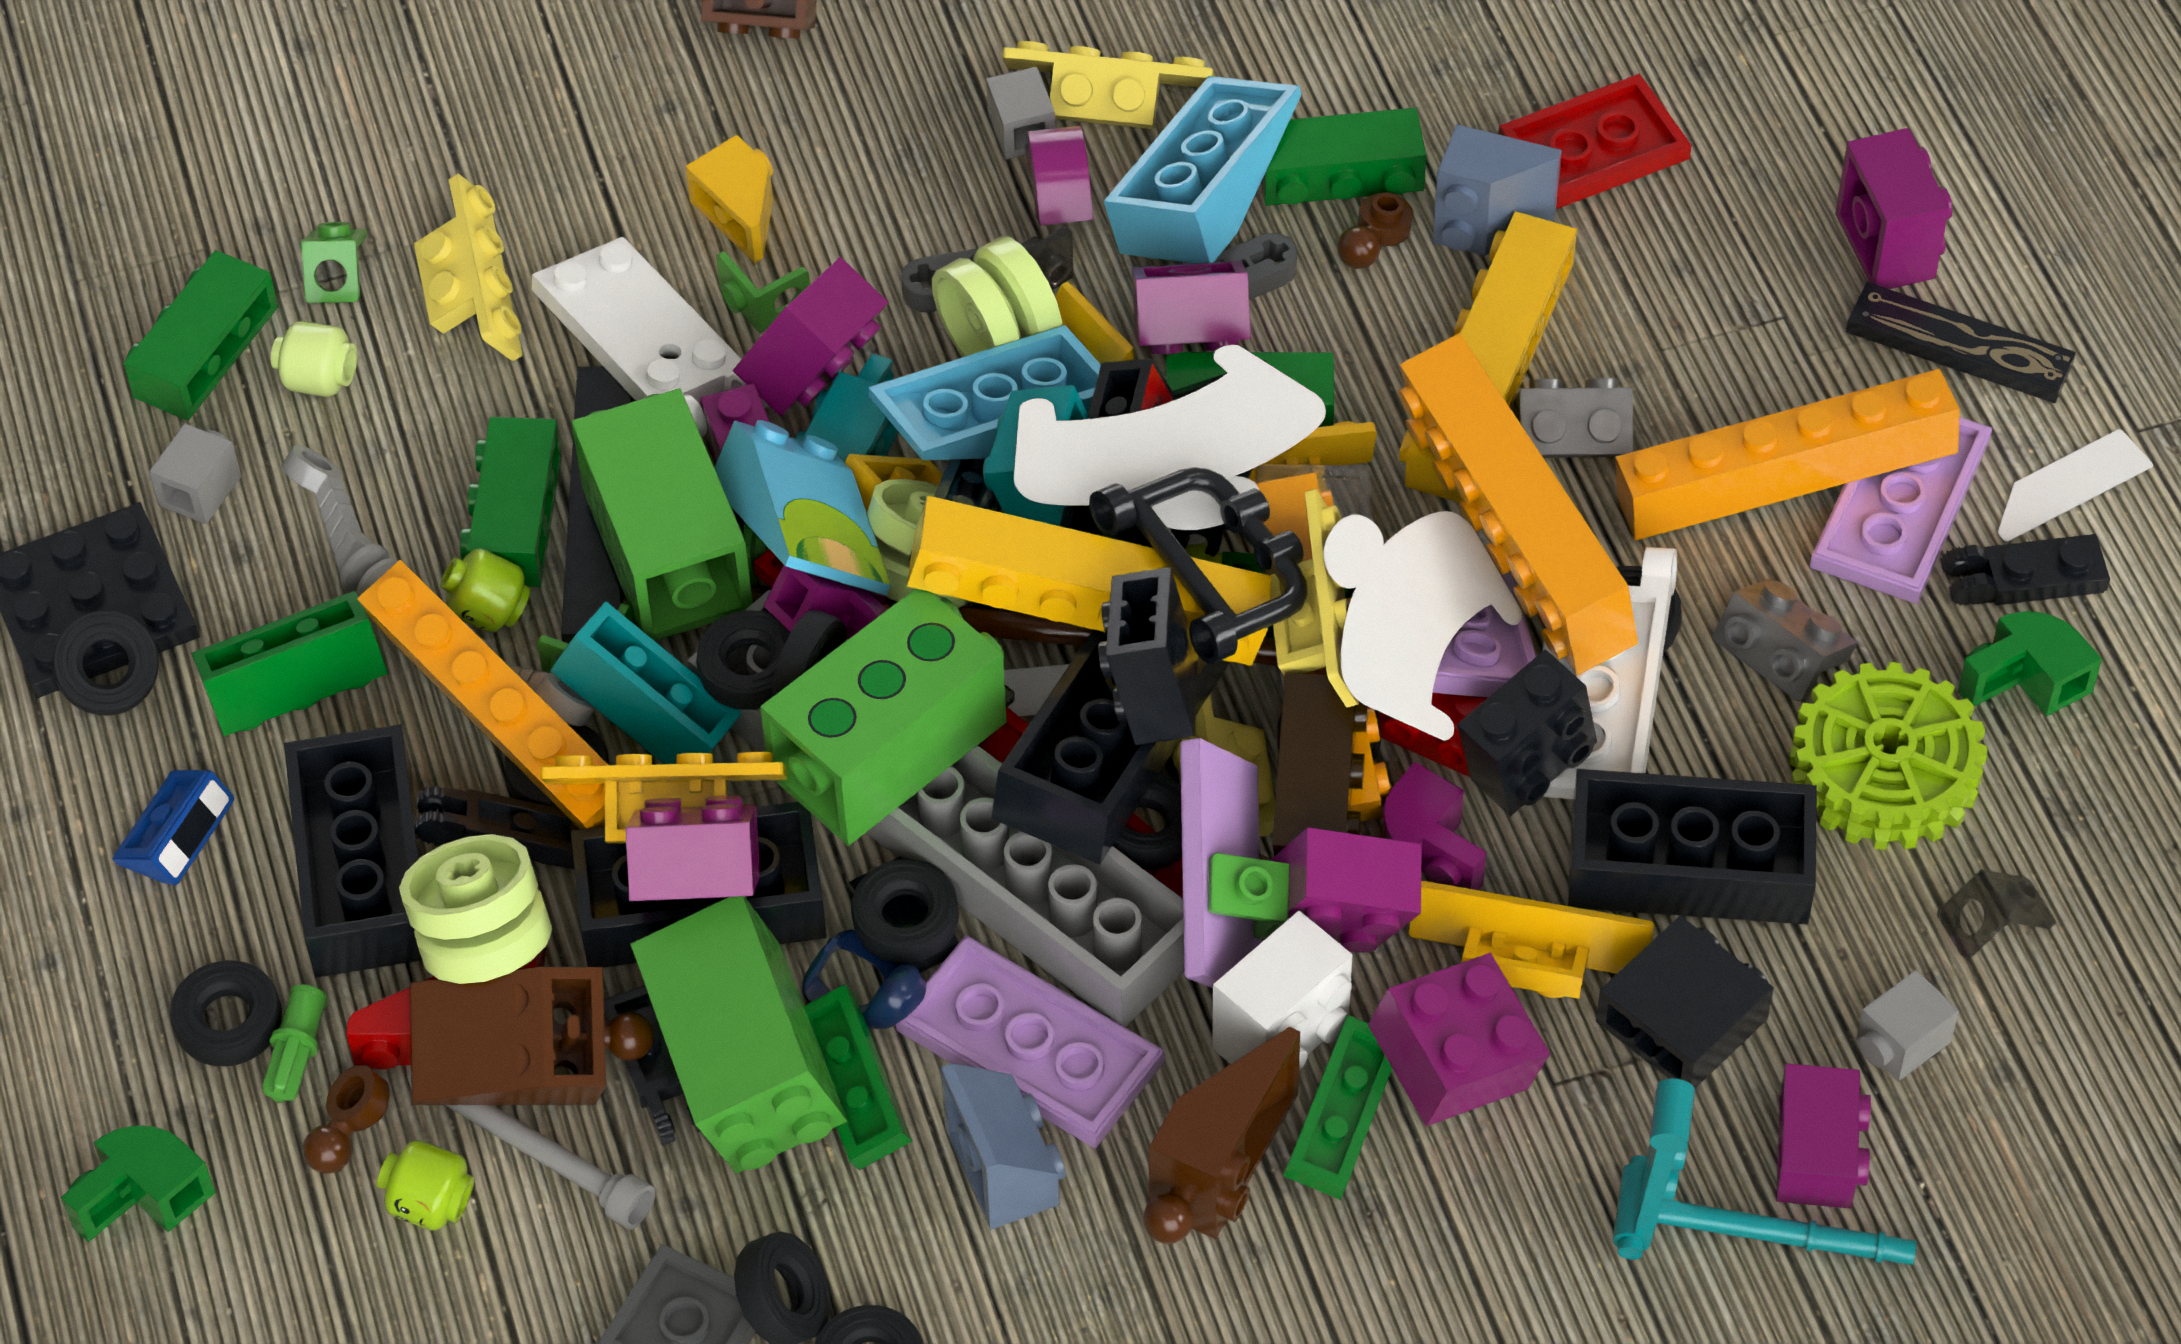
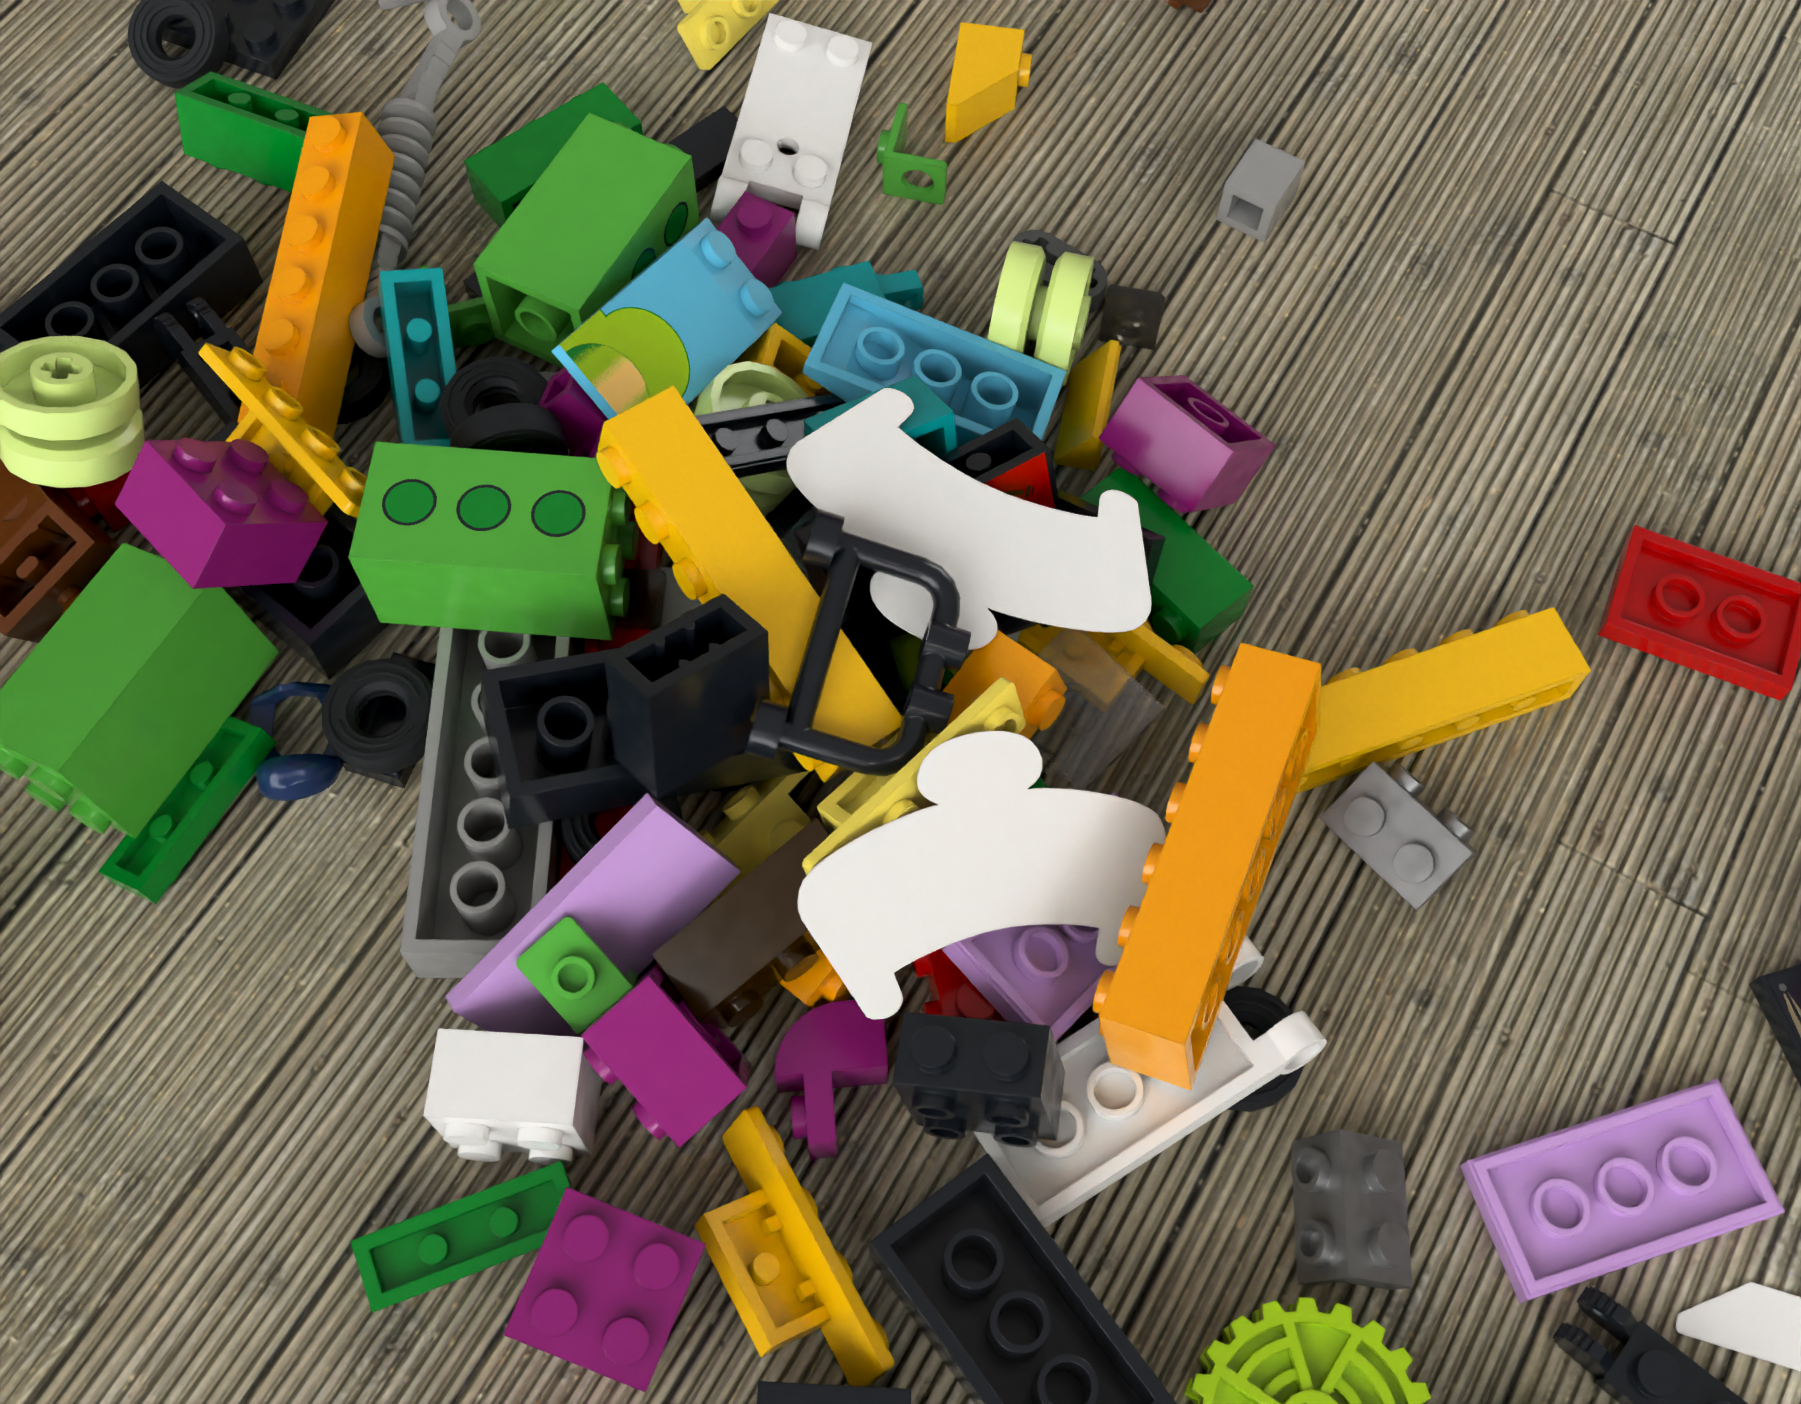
camera: 45 degrees right, 10 degrees up
(175, 825) = (83, 188): blue slope -> none
(485, 590) = (447, 201): lime head -> none
(813, 338) = (870, 213): magenta brick -> none
(1000, 1144) = (183, 972): sand blue slope -> none
(1009, 1021) = (344, 917): lavender tile -> none
(1059, 175) = (1222, 258): magenta brick -> none
(1104, 87) = (1349, 228): light yellow bracket -> none
(1201, 171) = (1330, 349): medium azure slope -> none
(1217, 1141) = (304, 1161): reddish brown slope -> none
(1265, 274) = (1291, 462): dark grey beam -> none
(1347, 157) = (1470, 436): green brick -> none
(1382, 221) = (1399, 520): reddish brown plate -> none
(1486, 181) = (1559, 559): sand blue slope -> none
(1787, 454) = (1554, 1055): light orange brick -> none

